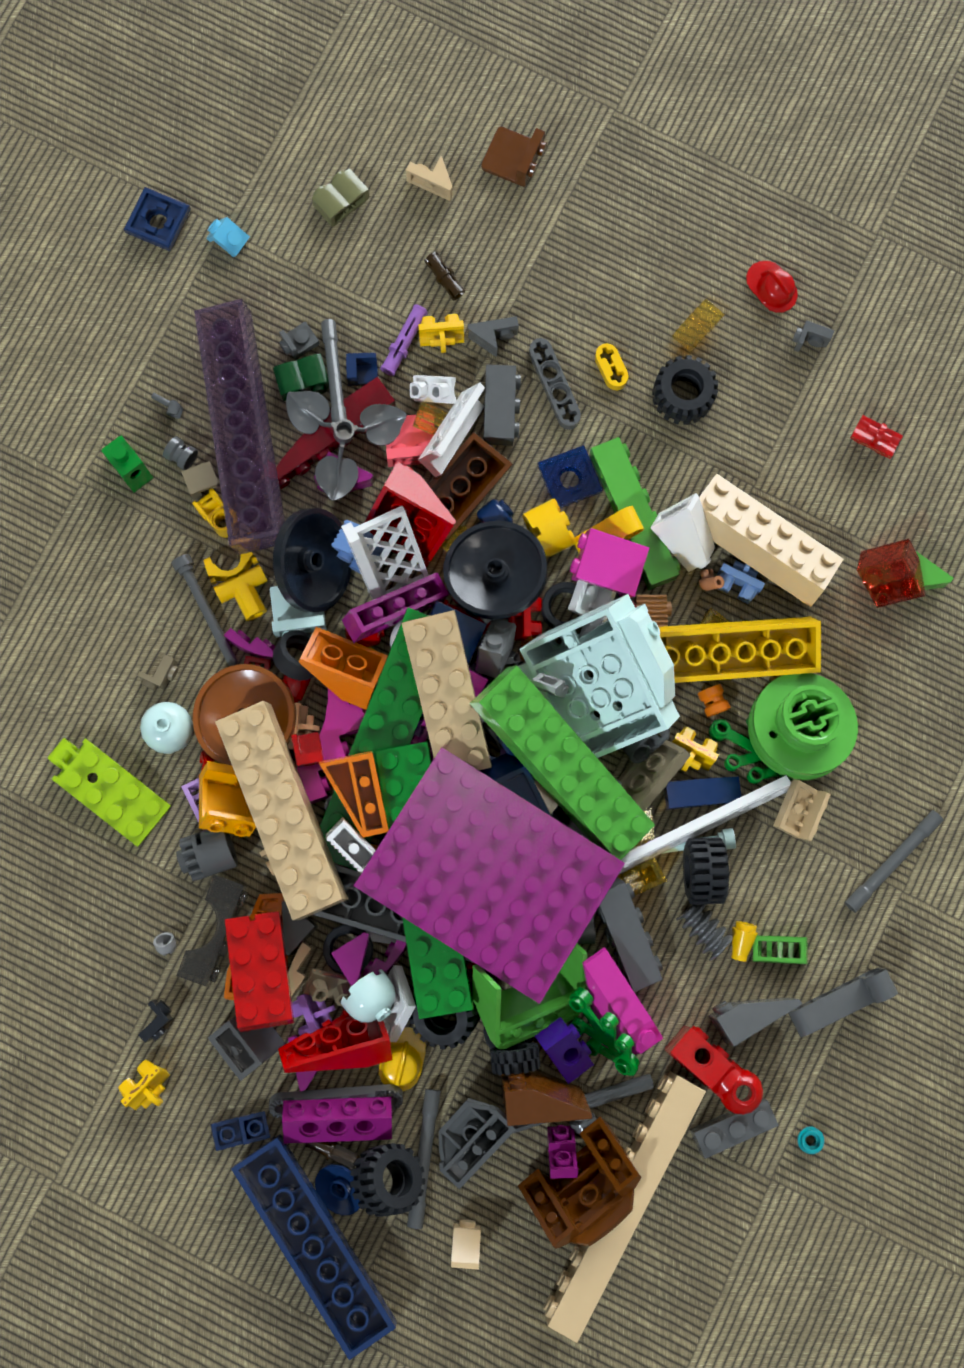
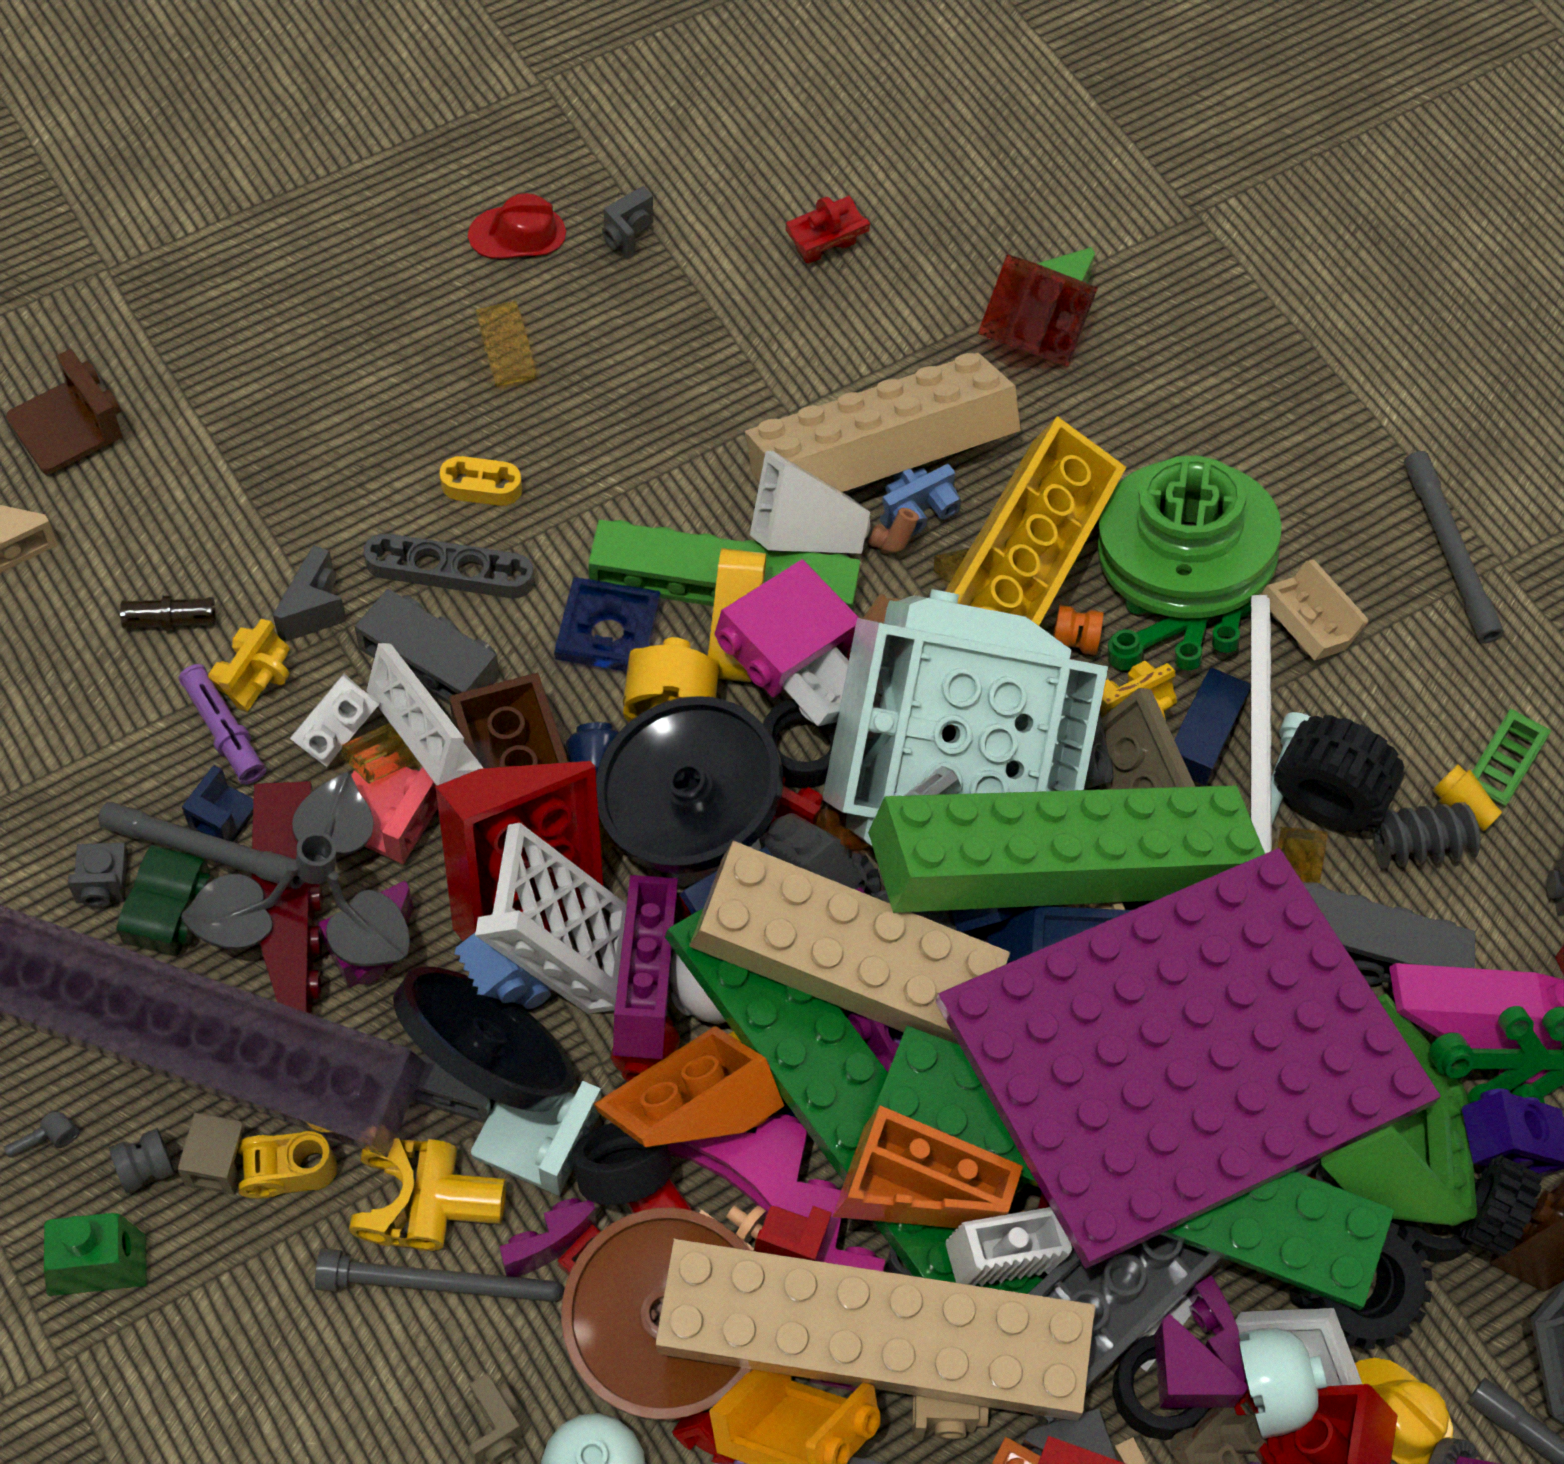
camera: 55 degrees left, 20 degrees down
(690, 371) = (589, 378): black tyre -> none

